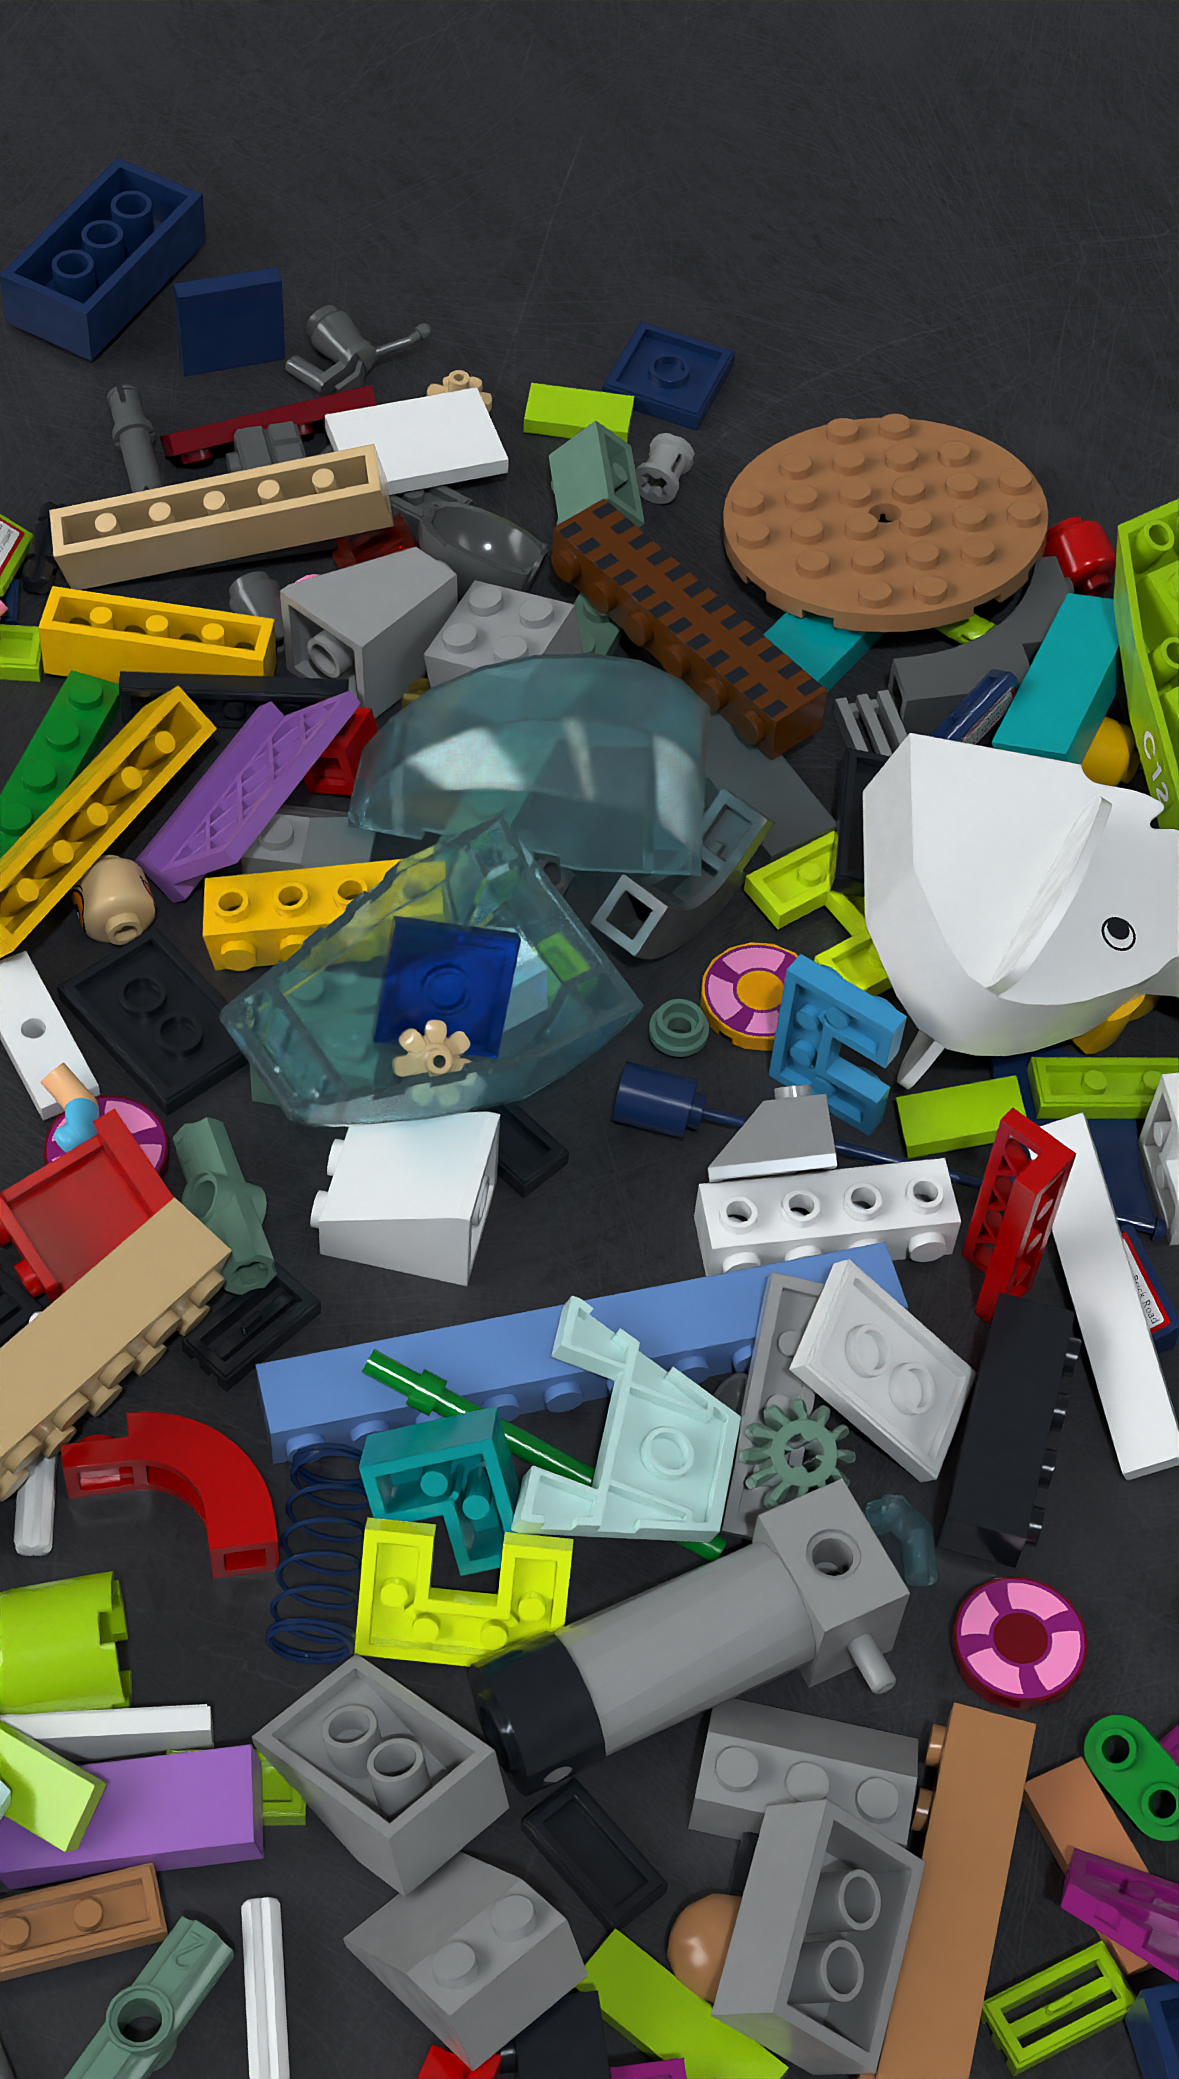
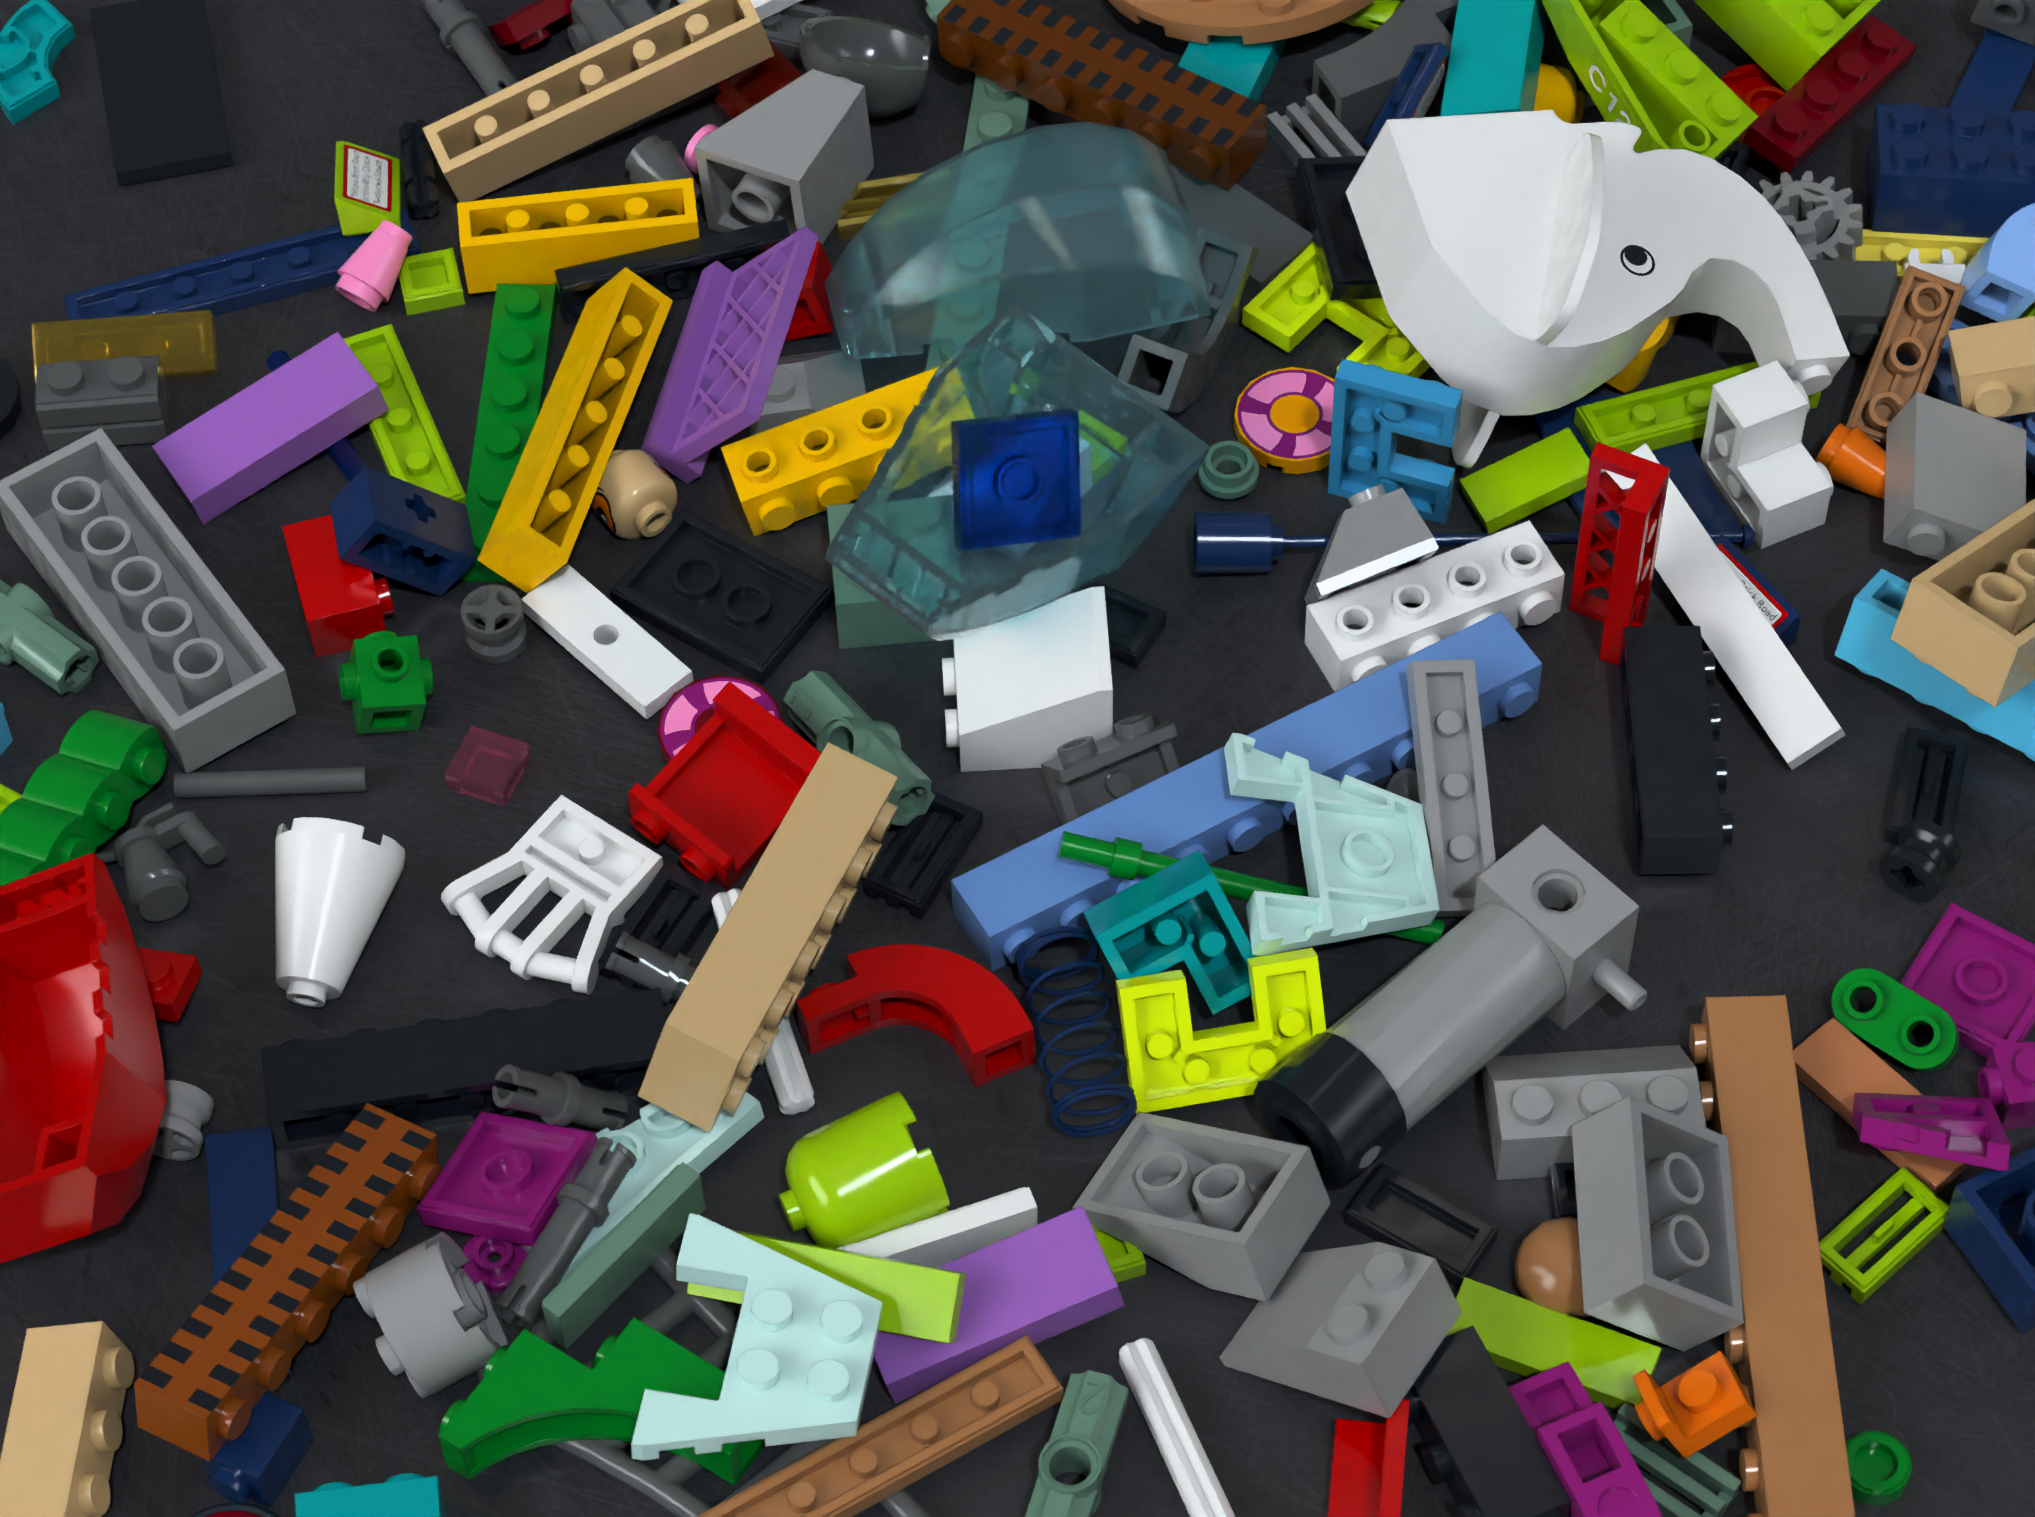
camera: 10 degrees left, 0 degrees up
(79, 1107) = (681, 692): arm -> none
(424, 1049) = (1021, 543): tan plant -> none
(449, 1294) = (1105, 769): none -> dark grey bracket
(500, 626) = (919, 130): light grey brick -> none
(798, 1432) = (1471, 802): sand green gear -> none
(883, 1371) = (1541, 726): white tile -> none
(914, 1532) = (1613, 866): clear light blue arm -> none
(1019, 1643) = (1742, 936): tile -> none

